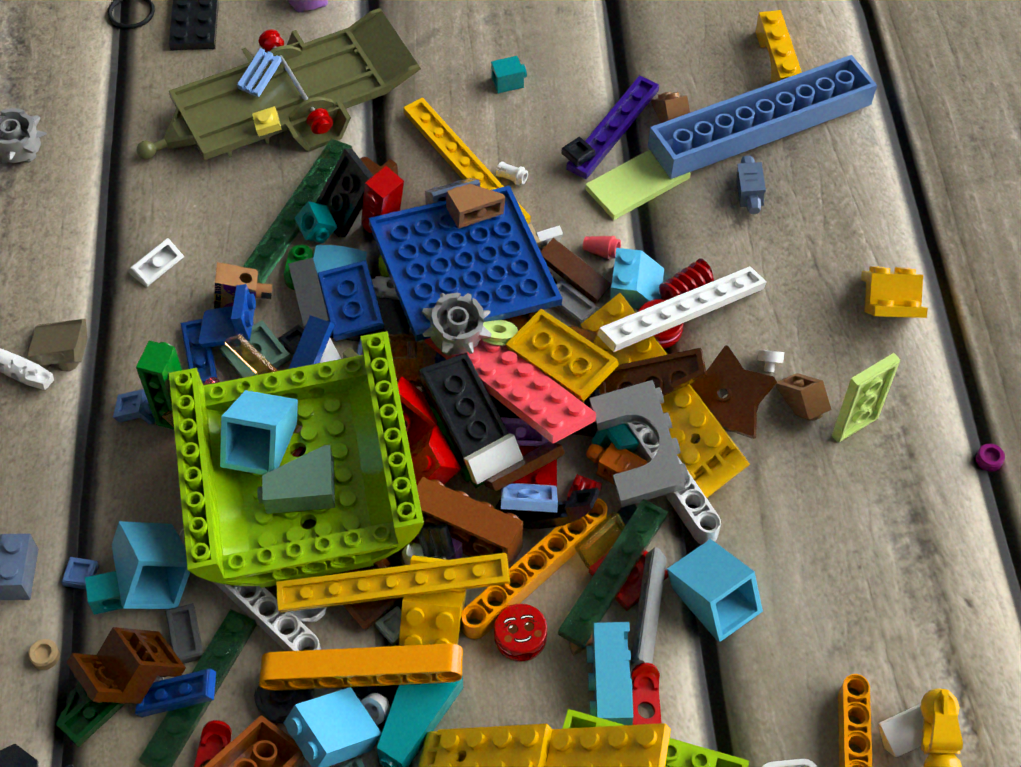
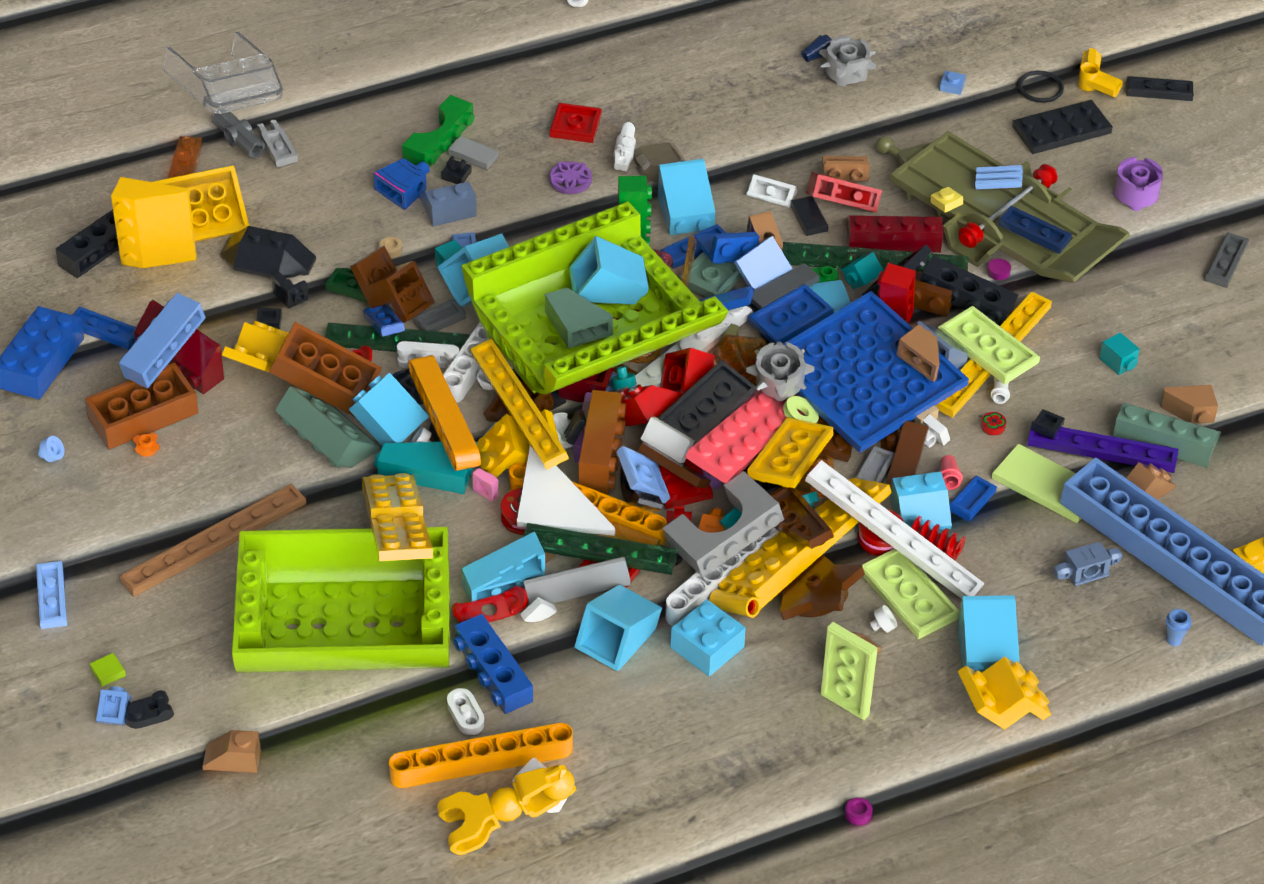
camera: 70 degrees right, 10 degrees down
(33, 435) = (570, 177): none -> medium lavender wheel
(87, 71) = (952, 82): none -> medium blue plate
(129, 327) = (685, 196): none -> medium azure slope
(161, 190) = (846, 167): none -> medium nougat bracket
(196, 203) = (843, 192): none -> slope
(207, 243) = (809, 215): none -> black tile
(247, 661) = (443, 353): none -> white plate
(269, 182) = (895, 232): none -> dark red slope
(276, 298) = (763, 264): none -> light blue tile
(343, 70) = (1035, 229): none -> dark blue plate
(358, 123) = (999, 269): none -> magenta tile
(395, 143) = (970, 290): none -> black brick
(461, 159) = (989, 345): none -> yellowish green tile
(472, 657) = (485, 484): none -> bright pink plate
(536, 593) = (556, 502): none -> white tile
(550, 194) = (993, 423): none -> red tile
(589, 47) = (1191, 403): none -> medium nougat slope
(613, 76) = (1143, 425): none -> sand green slope
(635, 238) = (972, 498): none -> blue tile
(667, 657) = (538, 611): none -> white tile
(740, 327) = (910, 593): none -> yellowish green tile
(754, 511) = (707, 637): none -> medium azure brick
(772, 711) = (493, 664): none -> blue brick
(825, 285) = (987, 630): none -> medium azure slope
(847, 146) = (1177, 625): none -> medium blue cone

